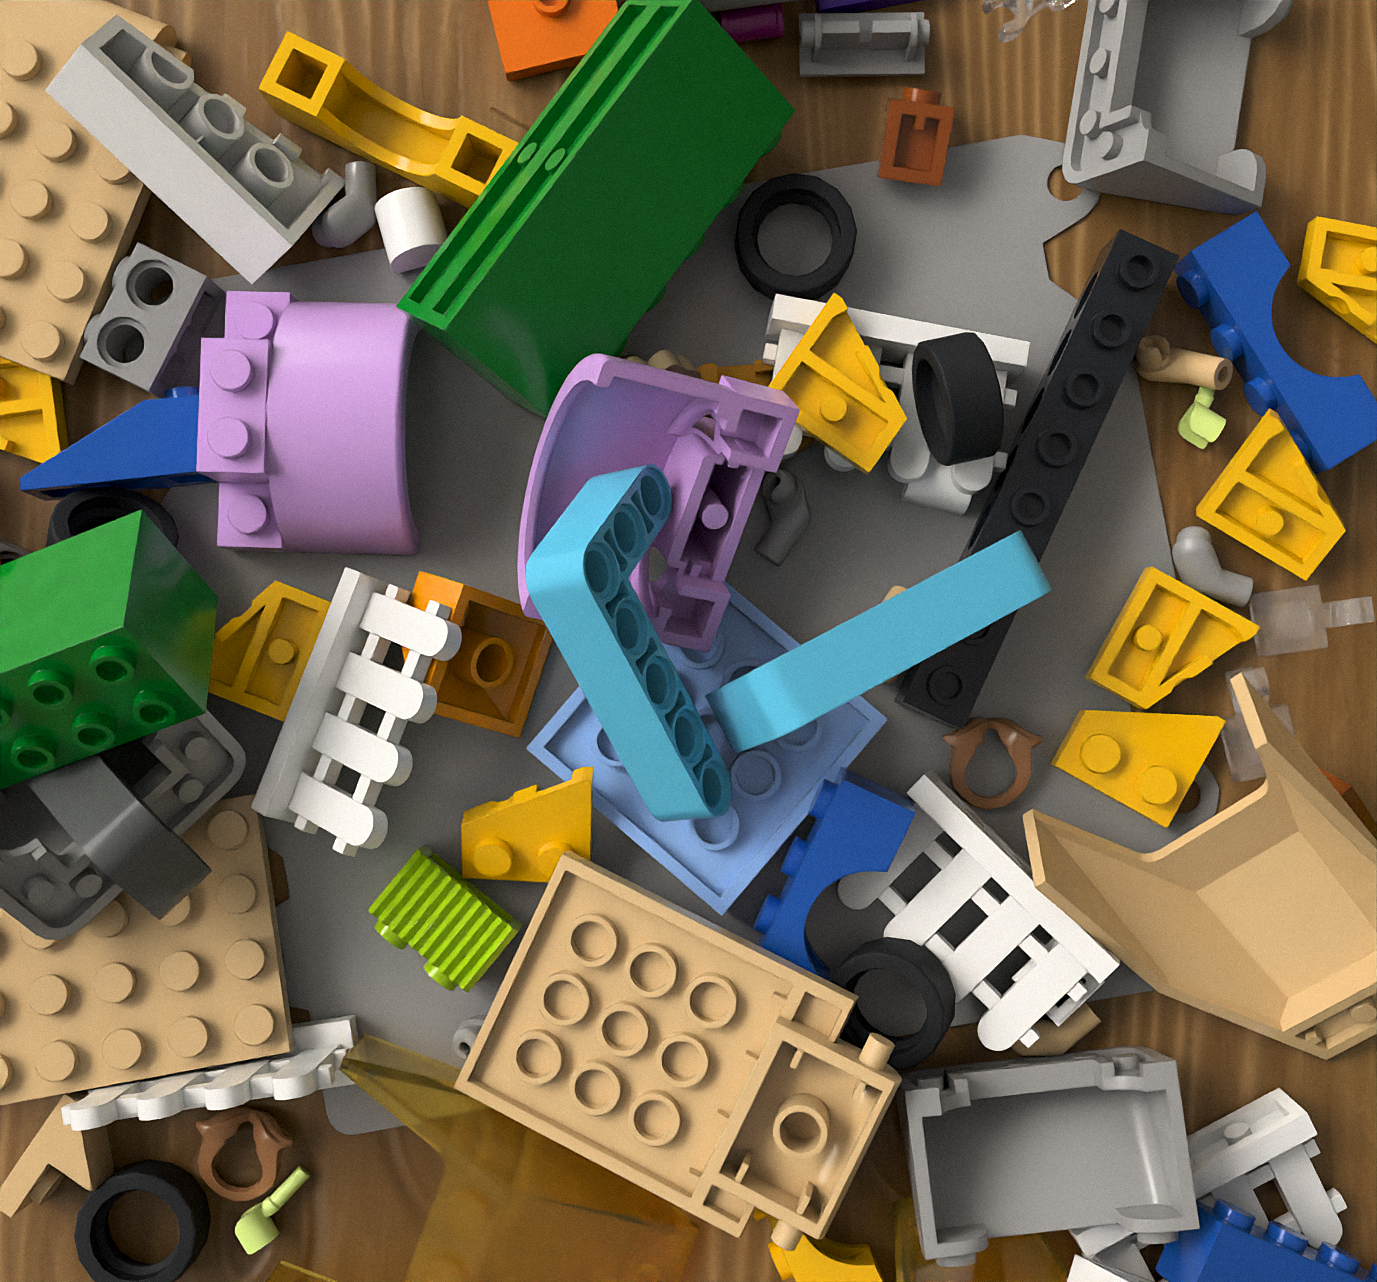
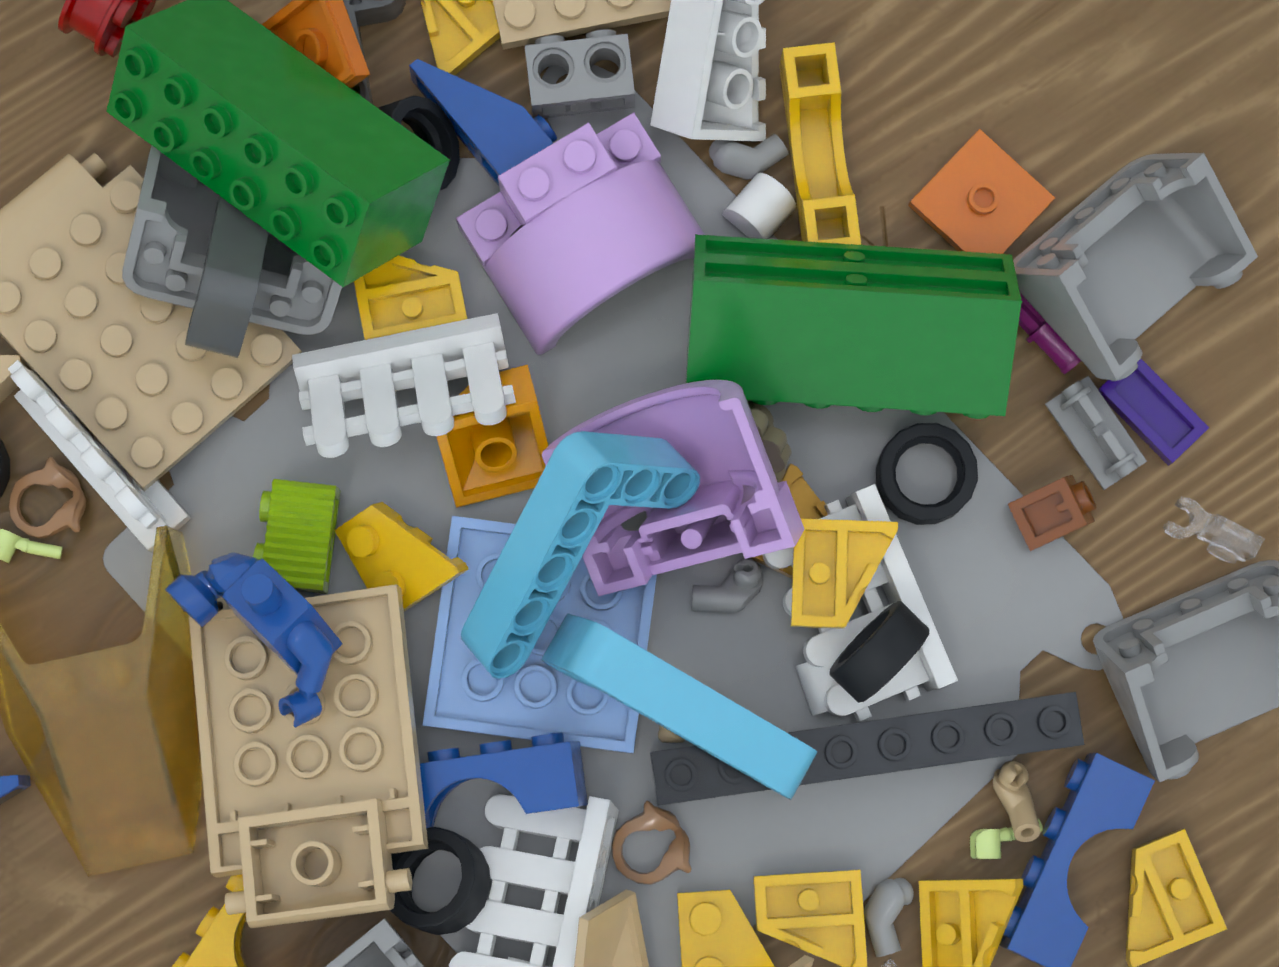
camera: 50 degrees right, 5 degrees down
(512, 1009) = (273, 614): none -> blue torso

